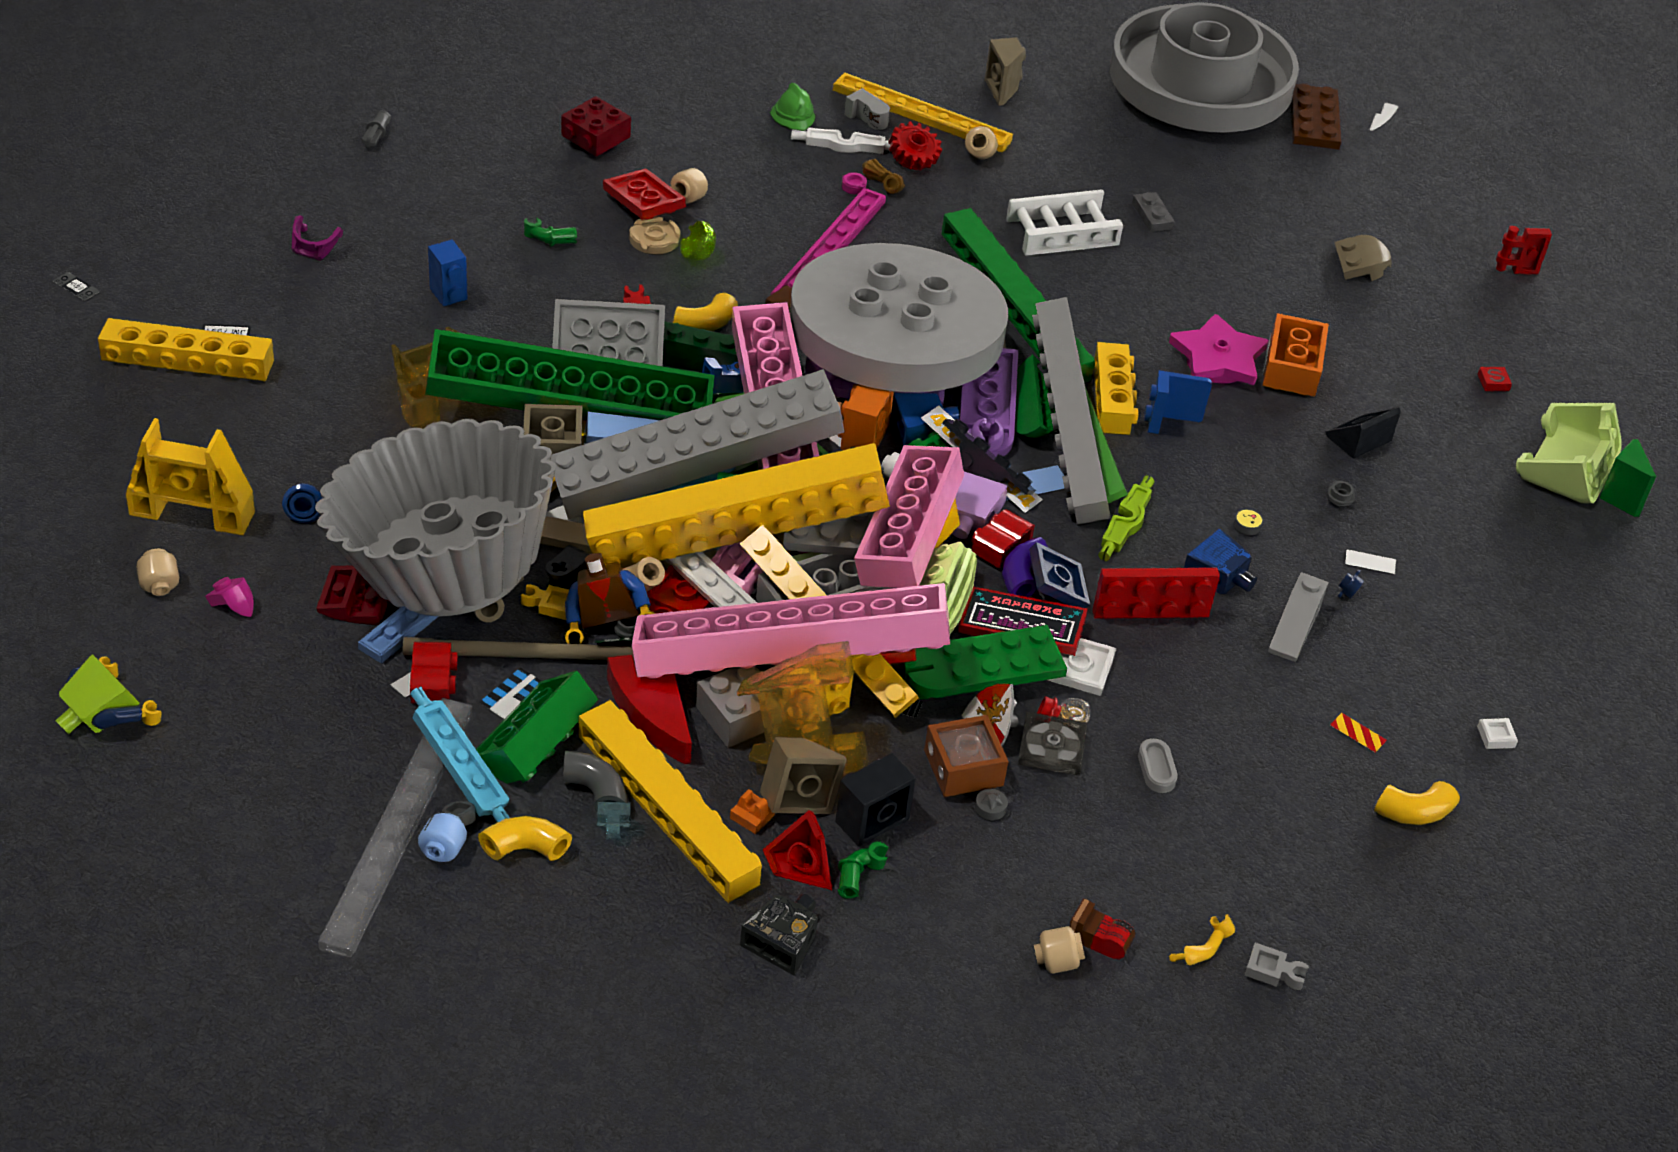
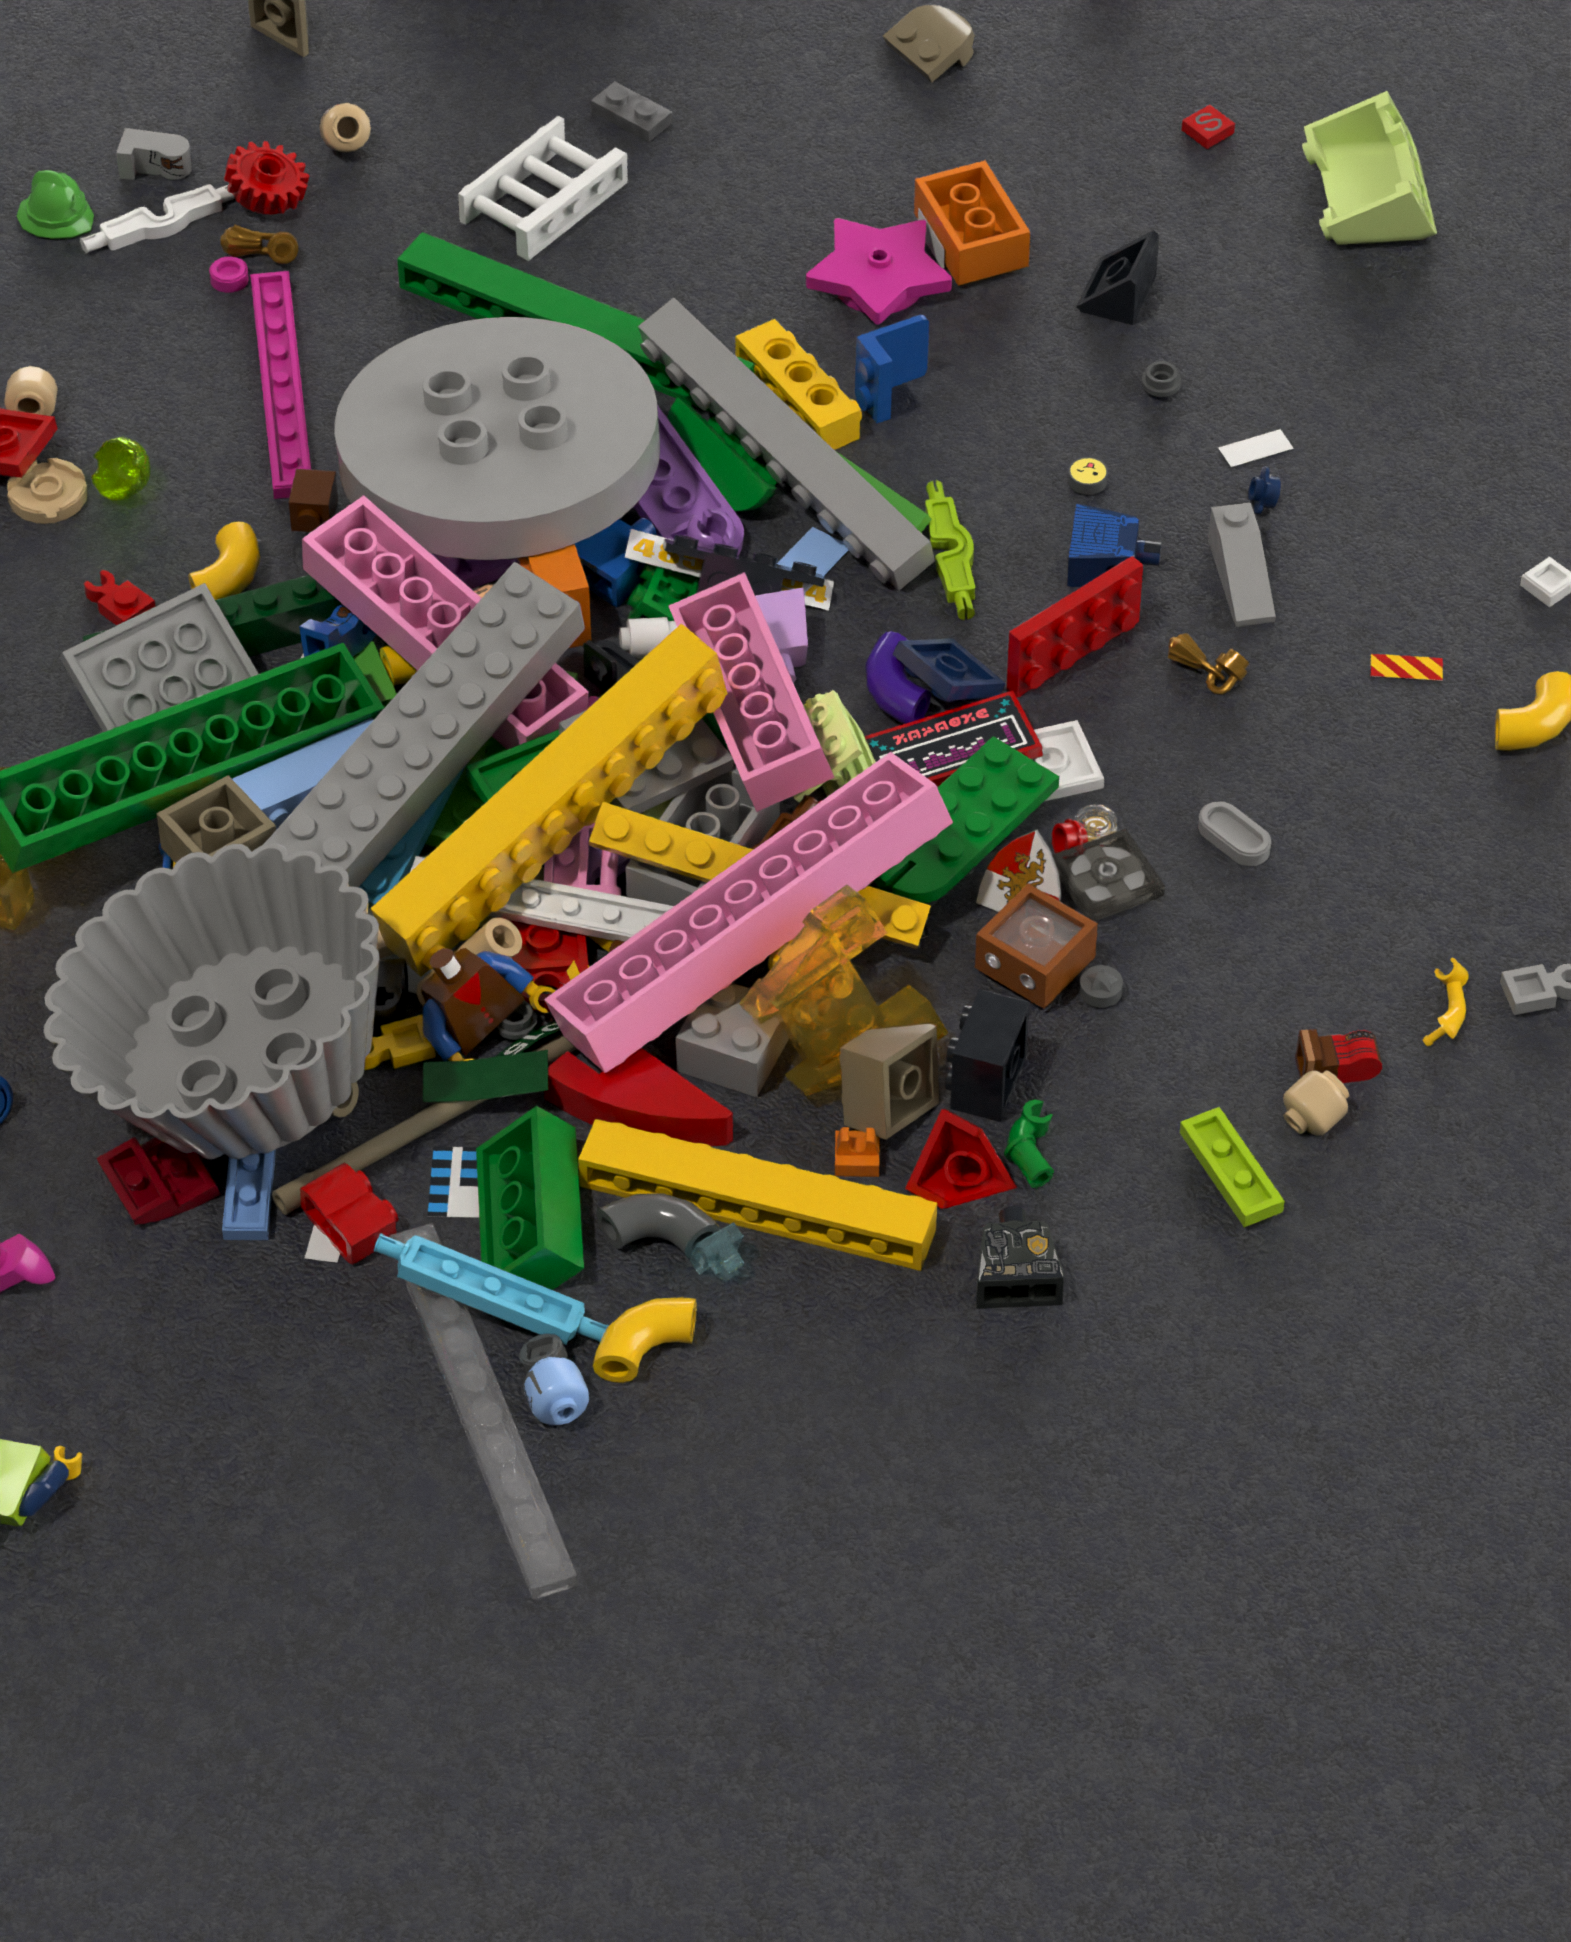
camera: 30 degrees left, 5 degrees up
(574, 643) = (485, 1077): none -> dark green sticker
(919, 110) = (210, 120): yellow tile -> none
(972, 957) = (1231, 1167): none -> lime plate
(1000, 537) = (840, 657): red brick -> none
(1220, 648) = (1186, 651): none -> pearl gold piece
(1629, 480) = (1464, 181): green slope -> none

